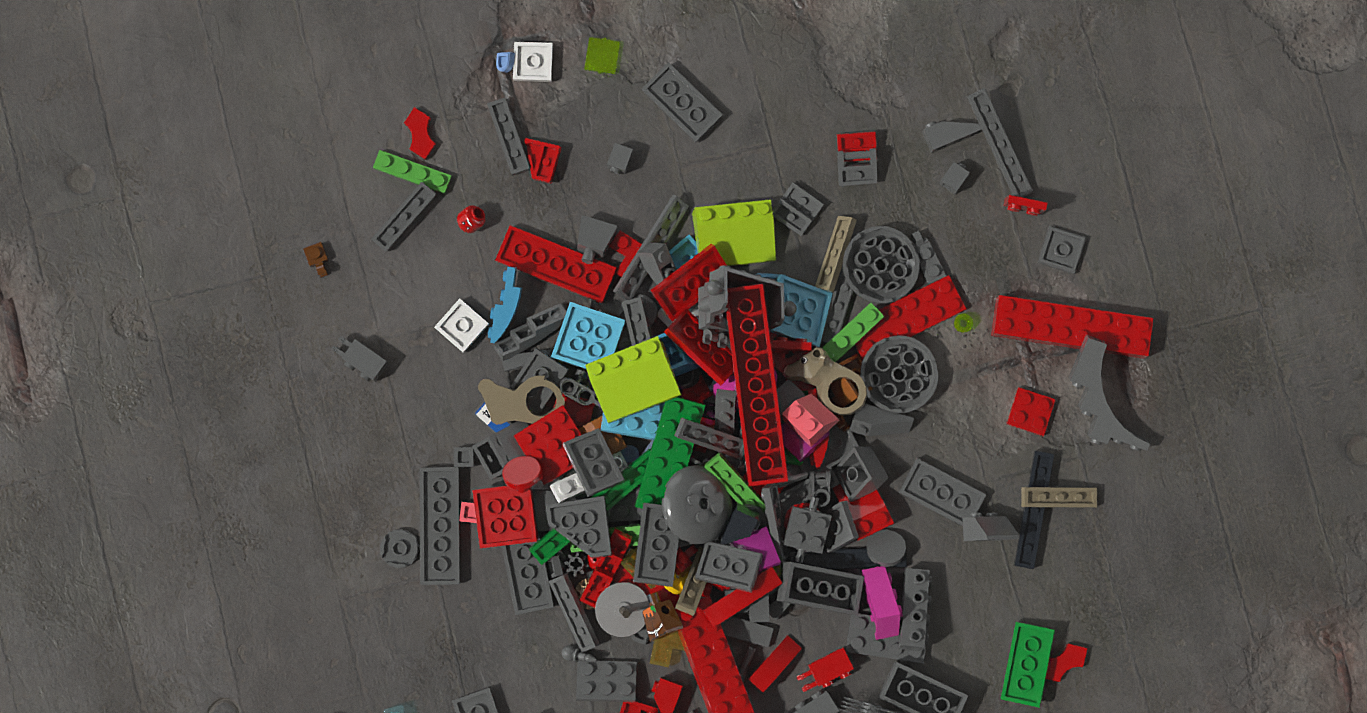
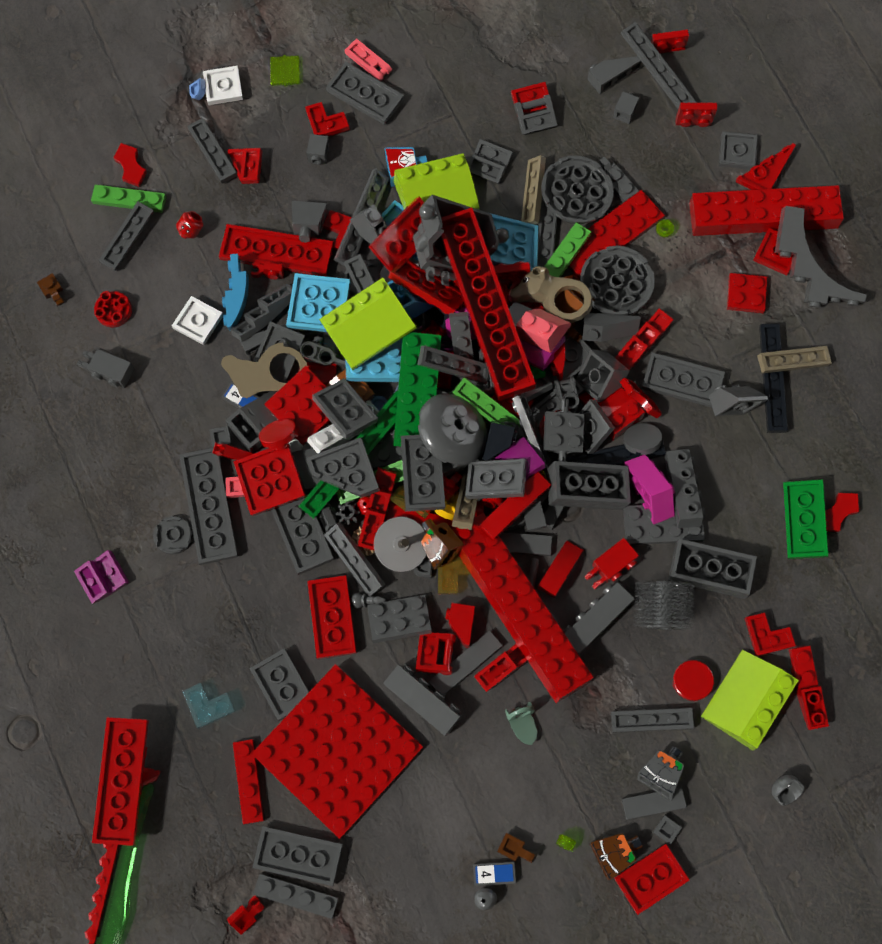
camera: 10 degrees left, 10 degrees down
(322, 576) = (101, 576): none -> magenta slope
(376, 293) = (112, 309): none -> red tile
(474, 478) = (229, 451): none -> red piece
(541, 665) = (331, 617): none -> red plate
(547, 287) = (270, 270): none -> red plate
(633, 132) = (323, 124): none -> red plate
(692, 63) = (367, 59): none -> coral plate
(706, 193) = (400, 158): none -> torso
(897, 509) = (636, 393): none -> red tile
(912, 442) = (644, 339): none -> red slope
(1018, 112) = (670, 41): none -> red plate
(1061, 372) = (767, 256): none -> red plate
(1081, 285) = (766, 173): none -> red wing

